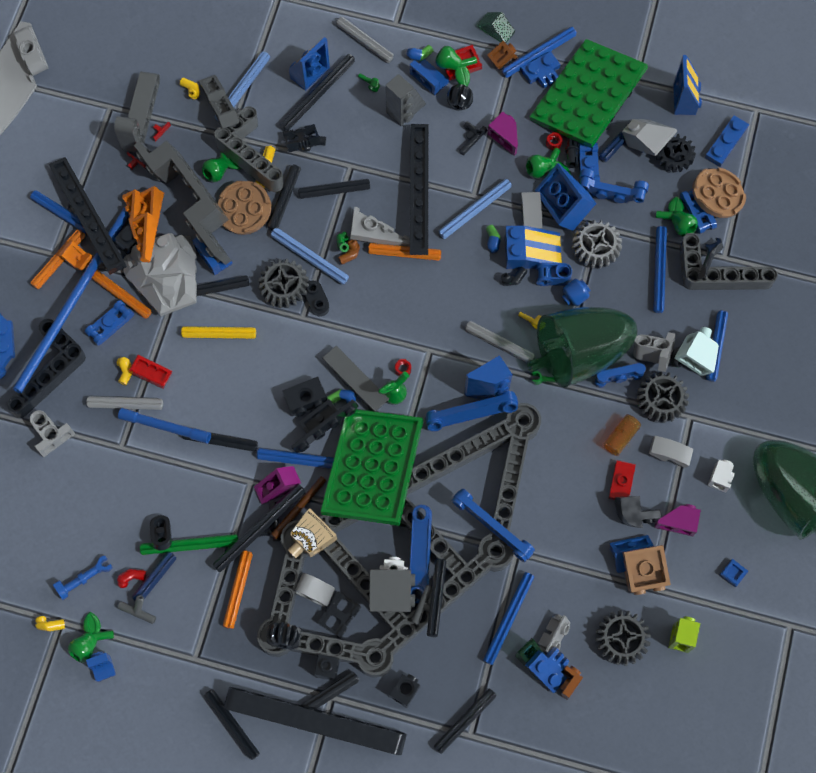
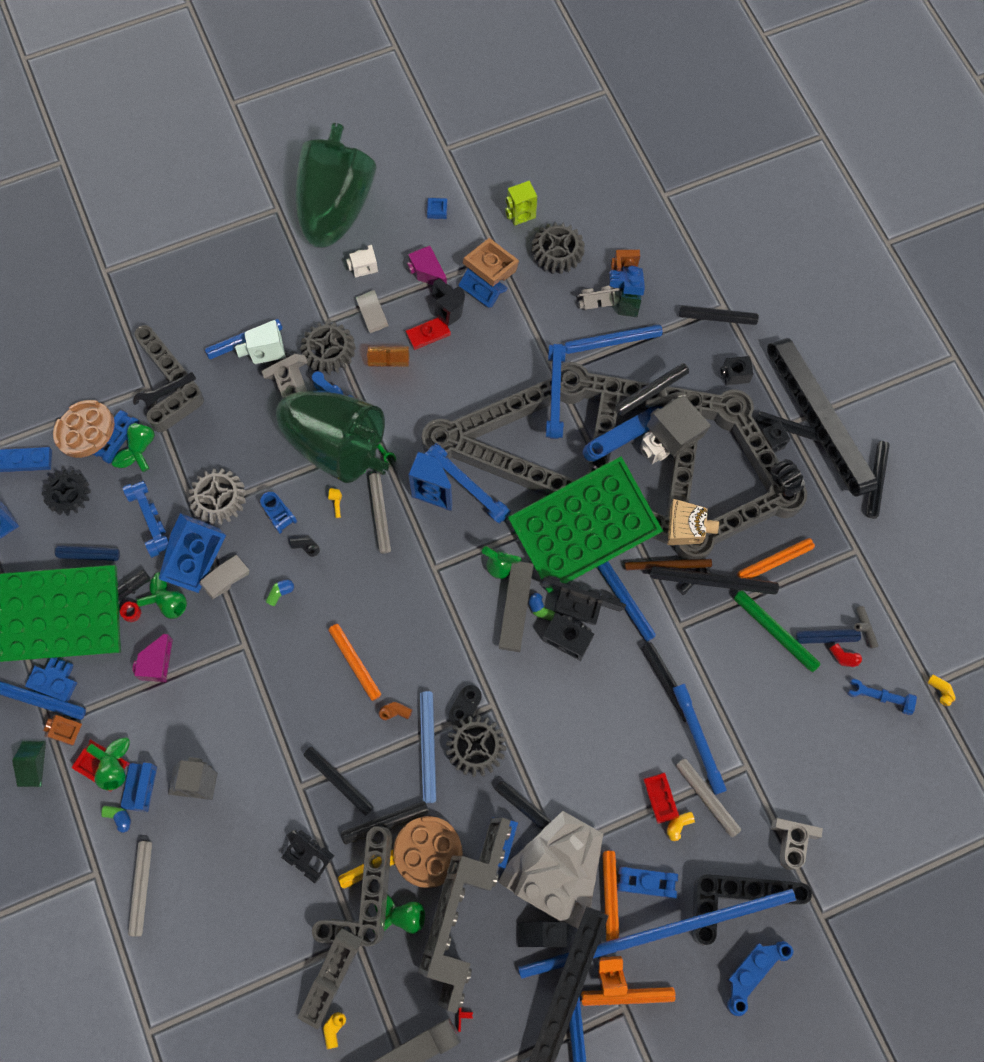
camera: 130 degrees left, 0 degrees up
(83, 646) = (934, 642): green piece -> none
(101, 665) = (934, 615): blue bracket -> none
(144, 216) = (515, 942): orange wedge -> none
(160, 532) = (792, 658): black plate -> none
(161, 131) = (406, 1020): red piece -> none
(218, 332) = (571, 768): yellow axle -> none
(248, 79) = (277, 975): medium blue axle -> none
(277, 483) = (664, 596): magenta slope -> none
(311, 65) = (215, 915): blue slope -> none
(314, 590) = (724, 494): light grey beam -> none
(317, 92) = (240, 886): black axle -> none
(341, 238) = (394, 724): green arm -> none
(344, 617) = (725, 472): black piece -> none
(373, 83) = (187, 836): green hand -> none
(375, 231) = (357, 708): light grey wing -> none
(402, 362) = (470, 583): red axle -> none
(419, 188) = (277, 695): black plate -> none
(460, 97) = (144, 733): black piece -> none
(472, 136) = (180, 692): black hose -> none
(475, 208) = (259, 631): medium blue axle -> none
(530, 246) = (265, 550): blue slope -> none
(576, 292) = (281, 480): blue head -> none
(589, 161) = (134, 562): blue plate -> none
(647, 135) = (64, 524): light grey slope -> none
(660, 269) = (201, 430): blue axle -> none

